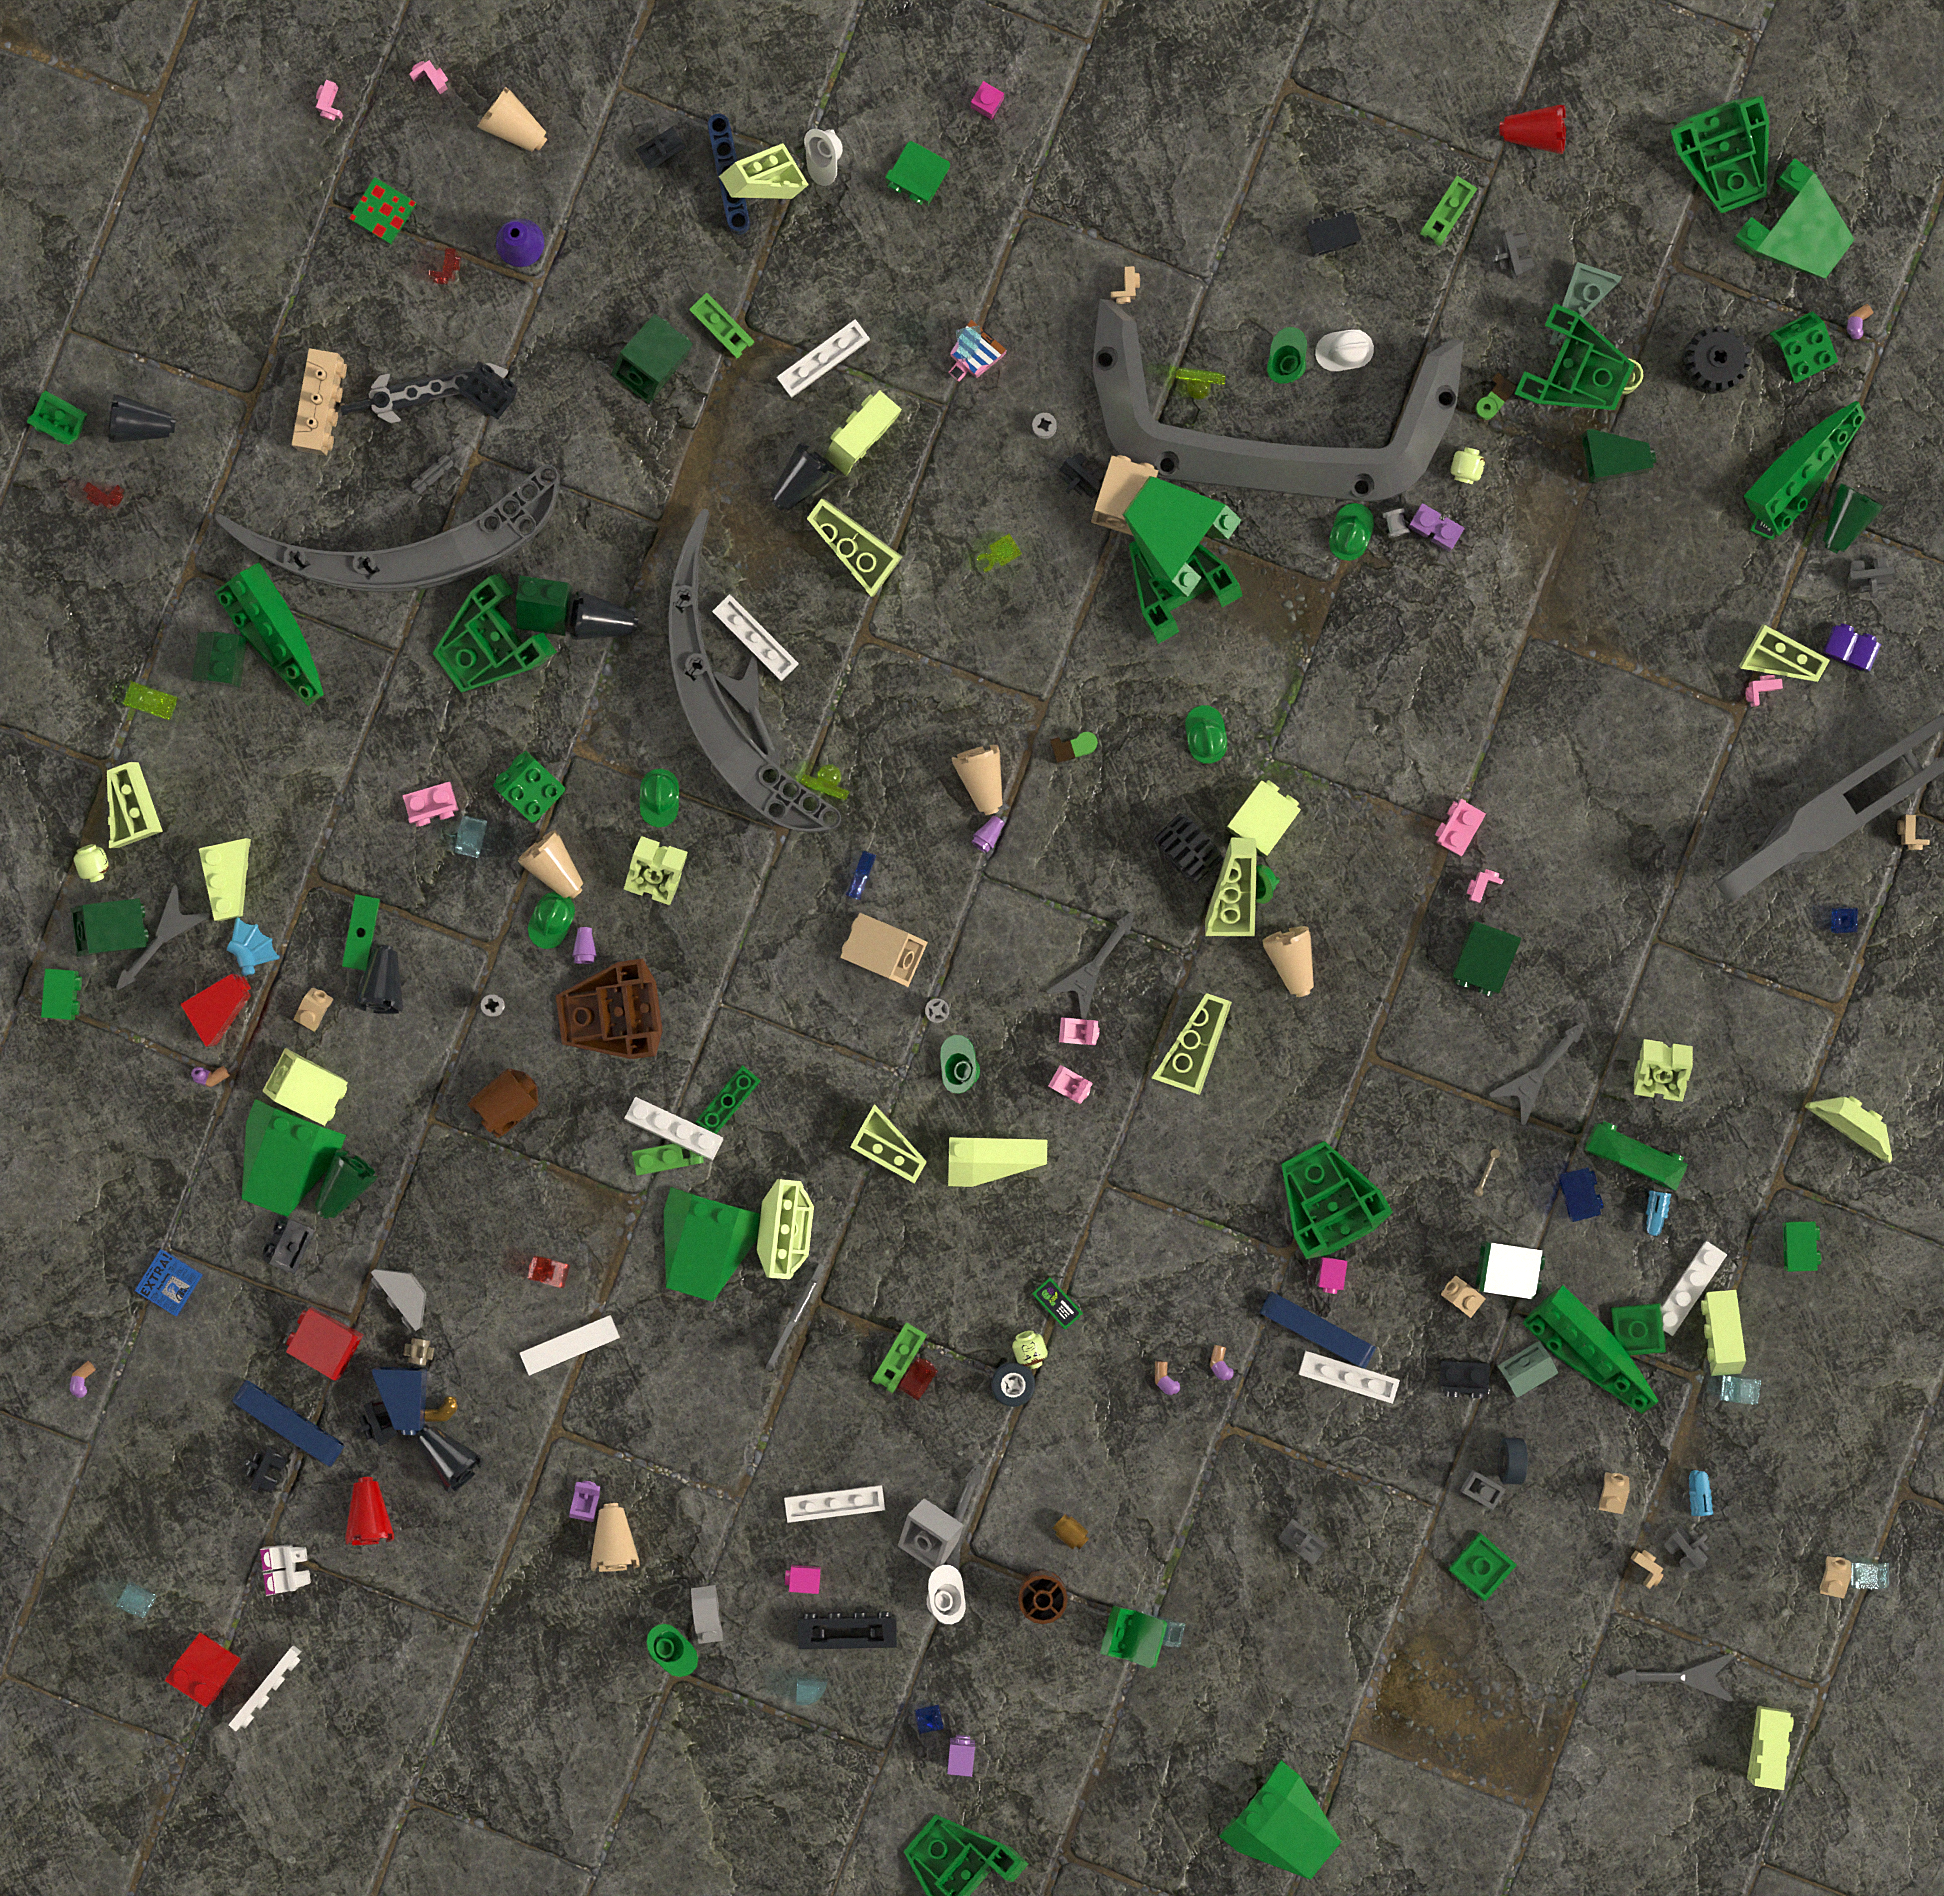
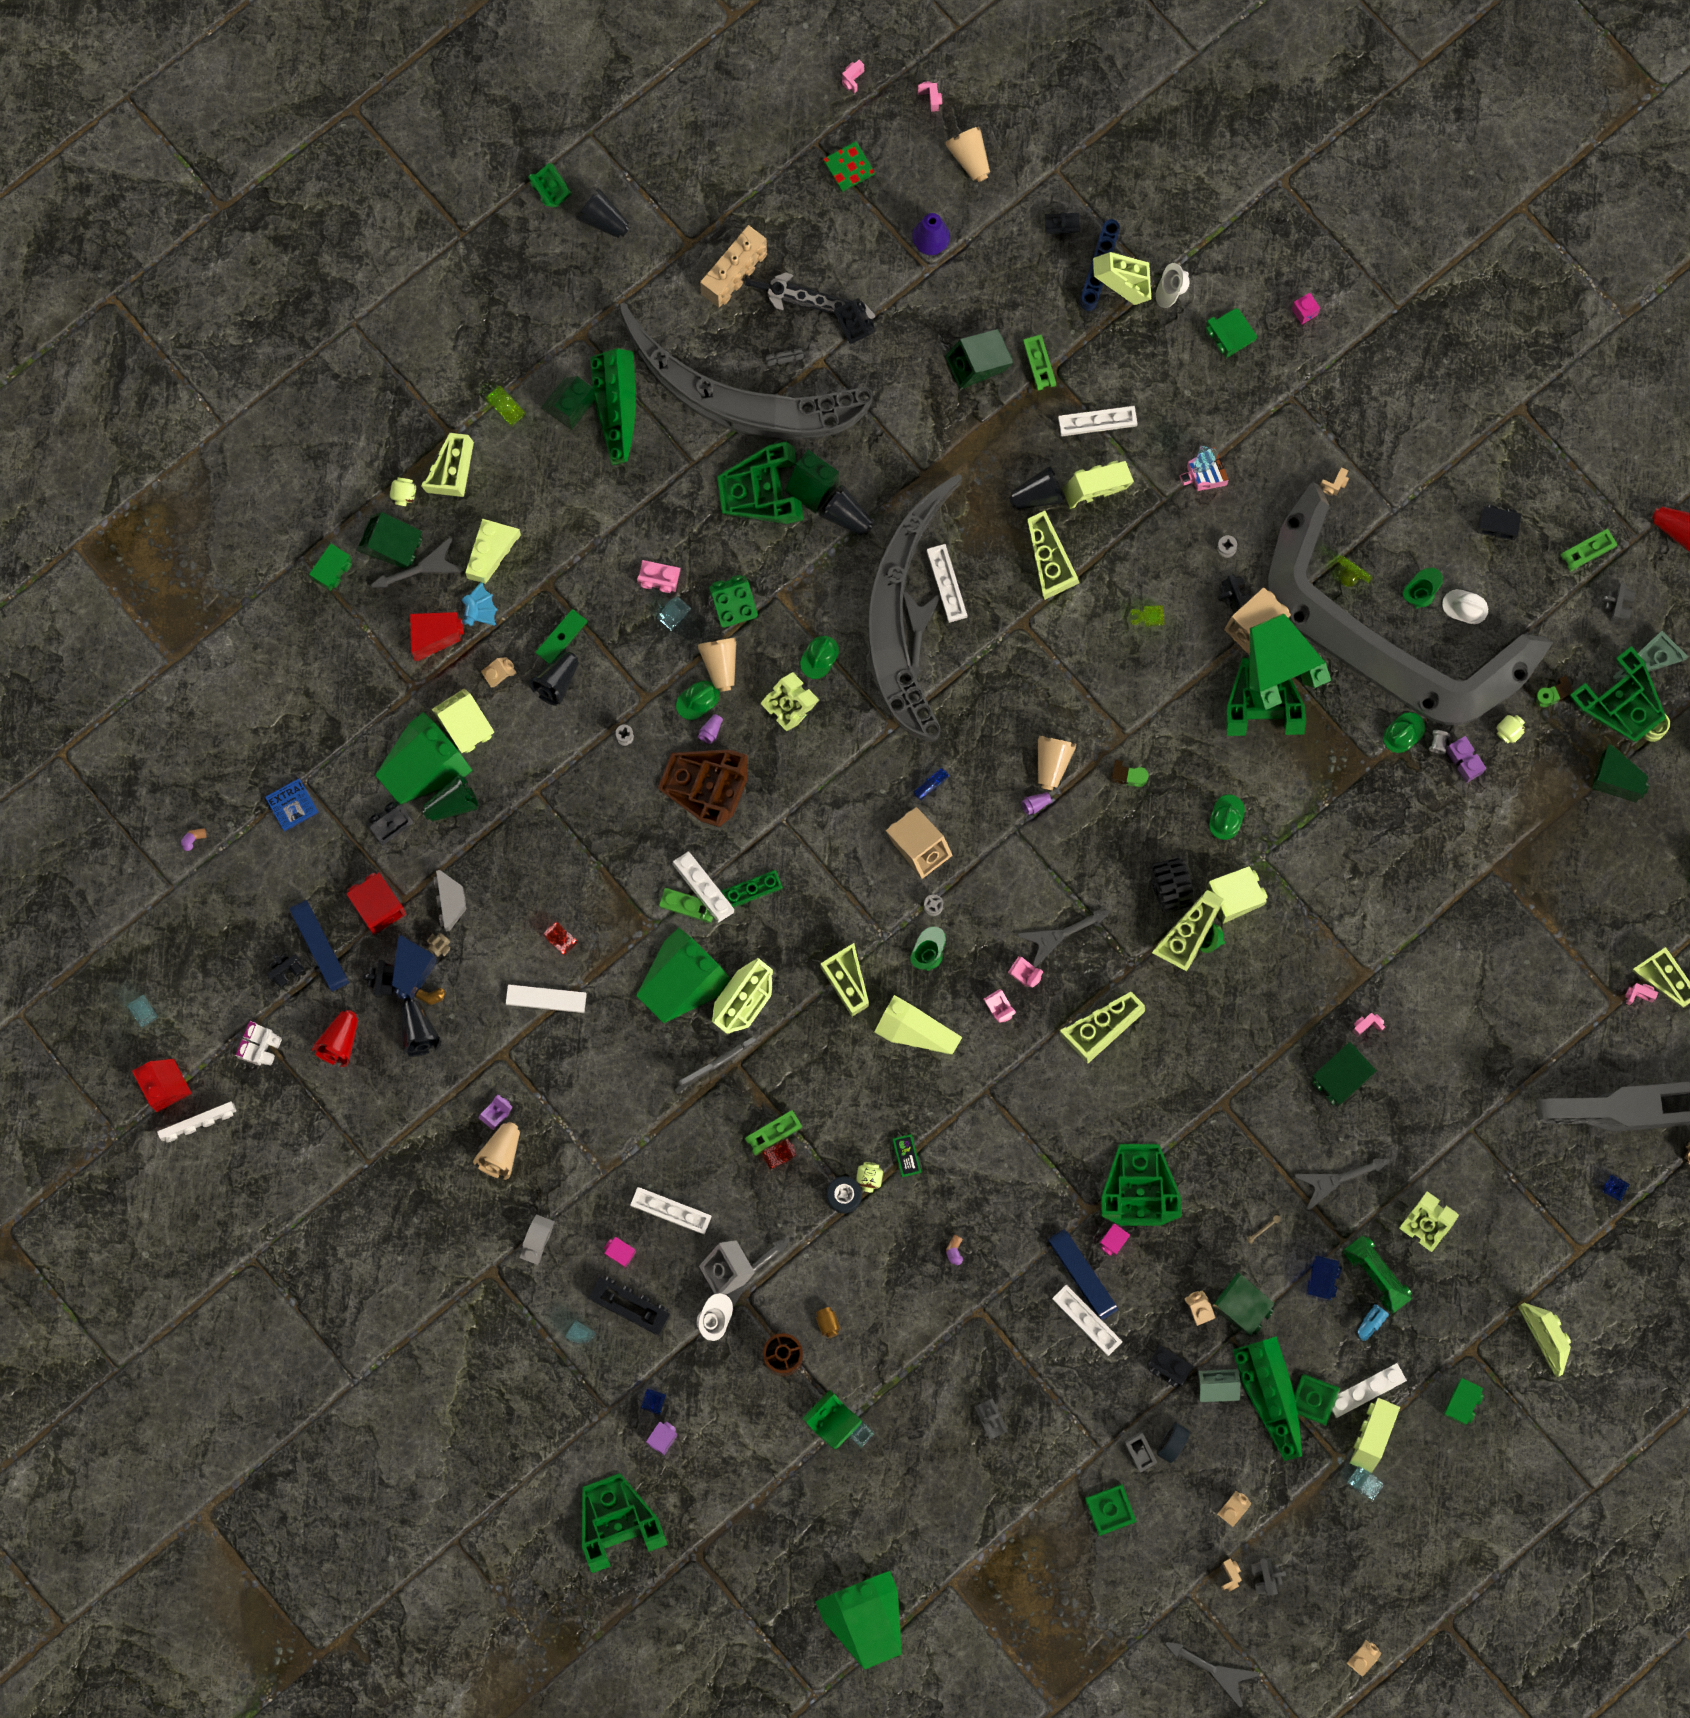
camera: 30 degrees right, 10 degrees down
(97, 496) = (547, 251): clear red bracket -> none
(209, 1078) = (399, 680): arm -> none
(451, 264) = (875, 225): clear red bracket -> none
(505, 1101) = (596, 804): reddish brown cylinder -> none
(671, 1650) = (497, 1250): green piece -> none
(828, 779) = (942, 707): clear neon green tile -> none
(1217, 1364) = (998, 1263): arm -> none
(1292, 958) = (1204, 1002): tan cone -> none
(1460, 827) = (1372, 976): bright pink bracket -> none
(1700, 1494) = (1297, 1542): dark azure hinge -> none
(1870, 1575) = (1390, 1670): clear light blue brick -> none

